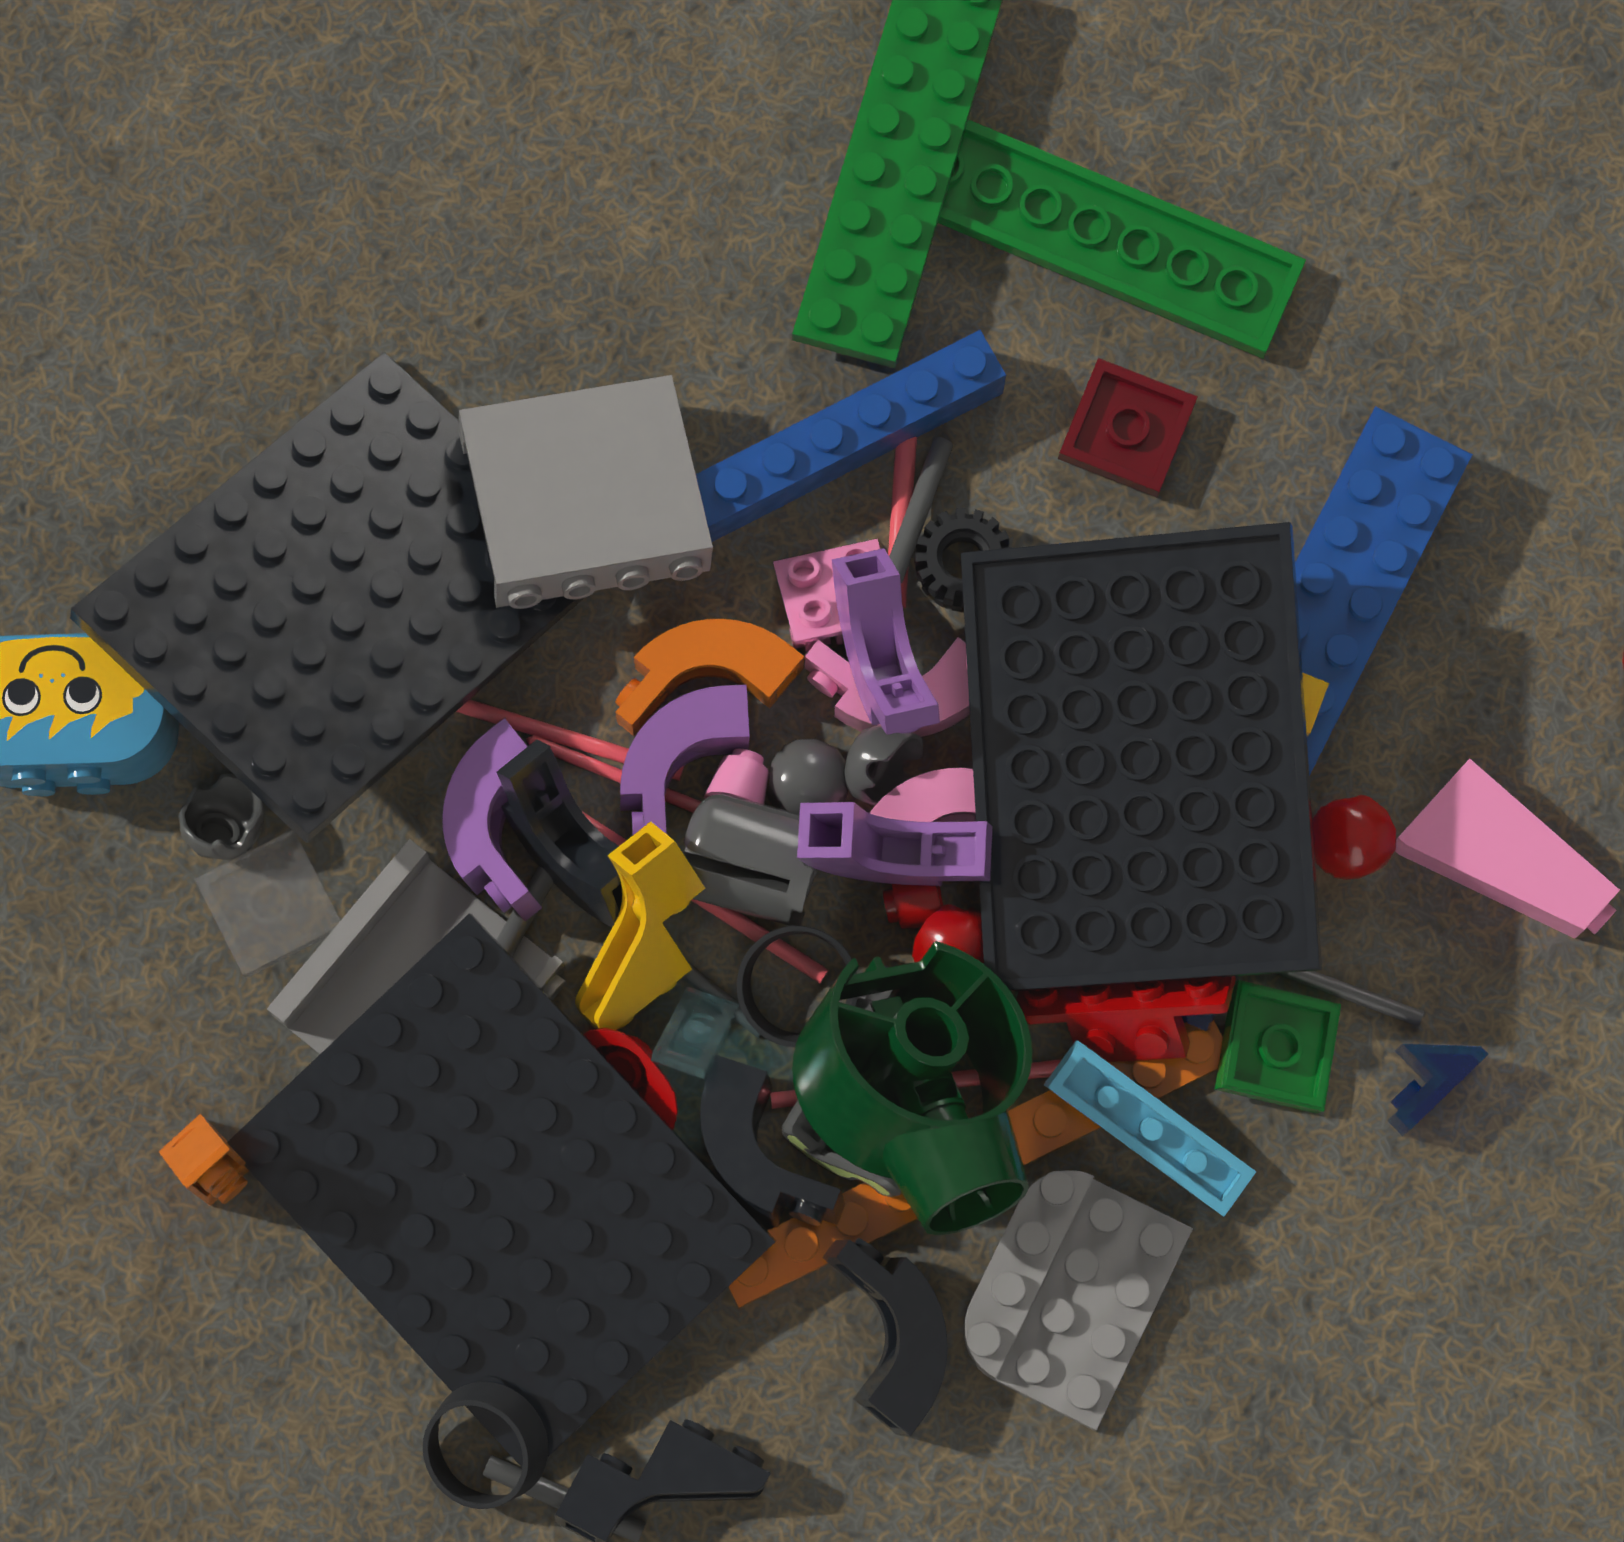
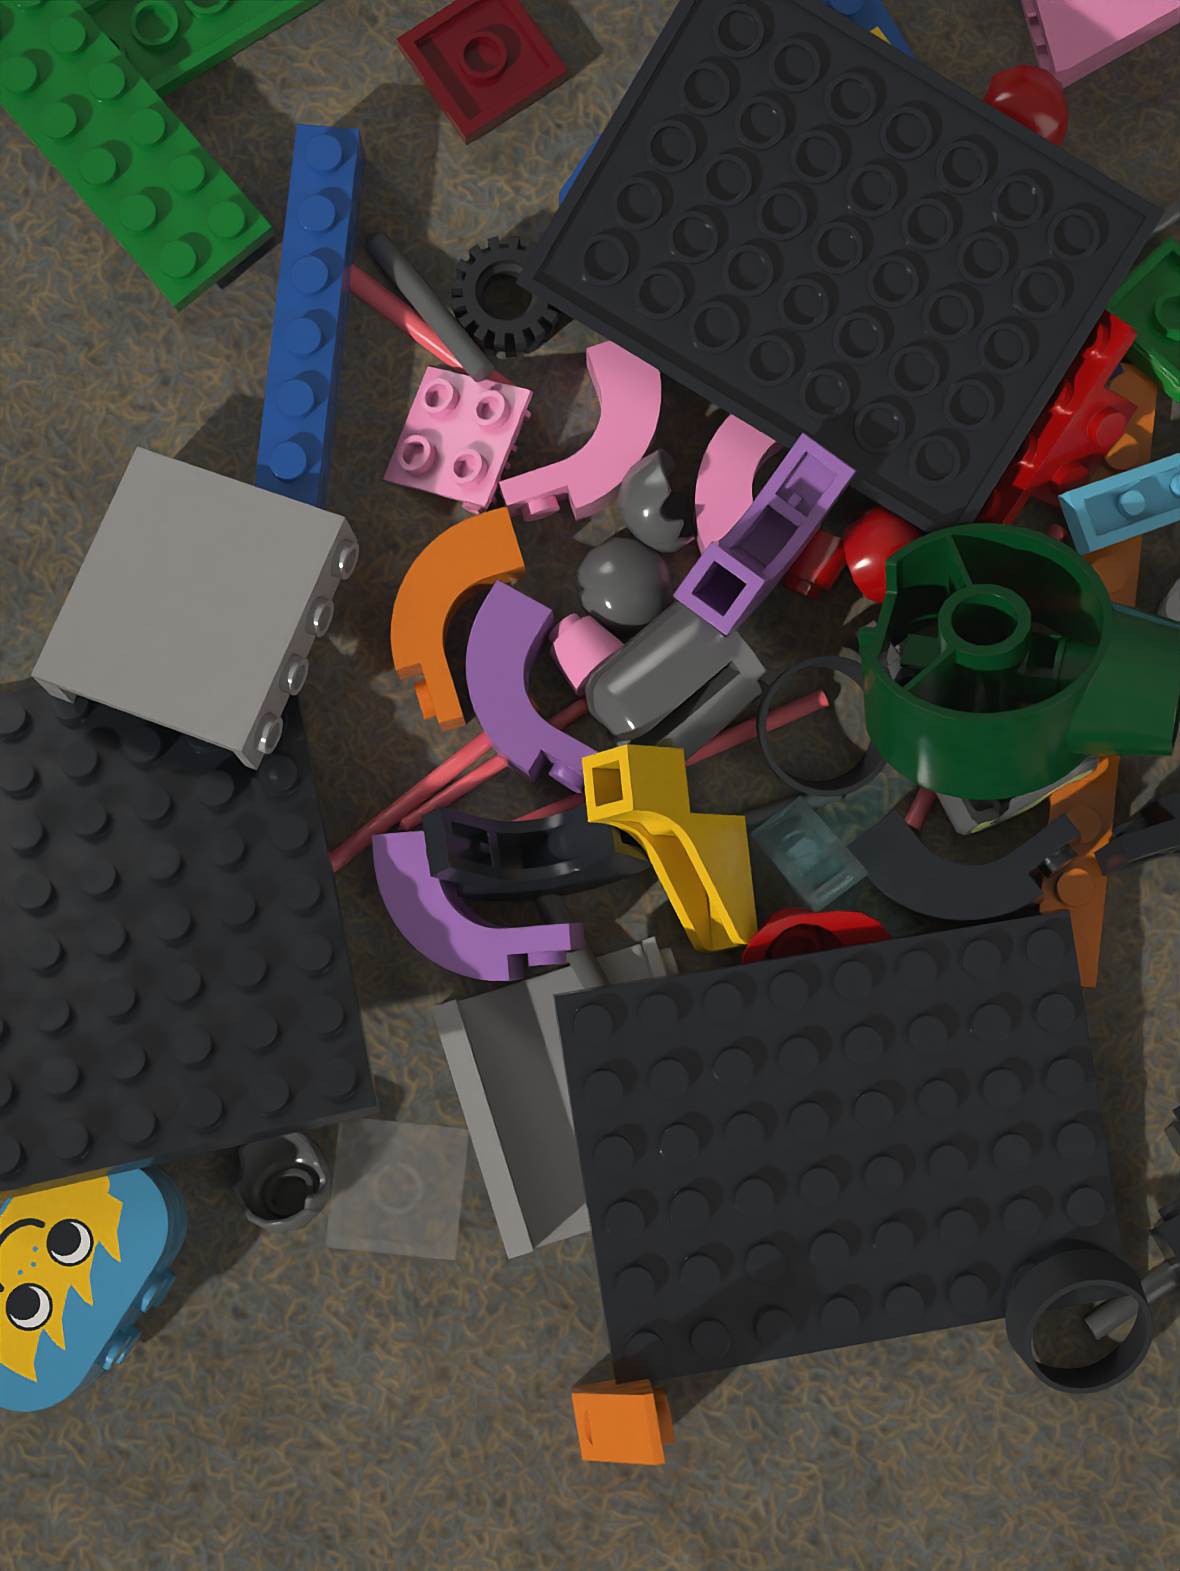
camera: 55 degrees left, 5 degrees up
(878, 643) = (552, 427): medium lavender arch -> none

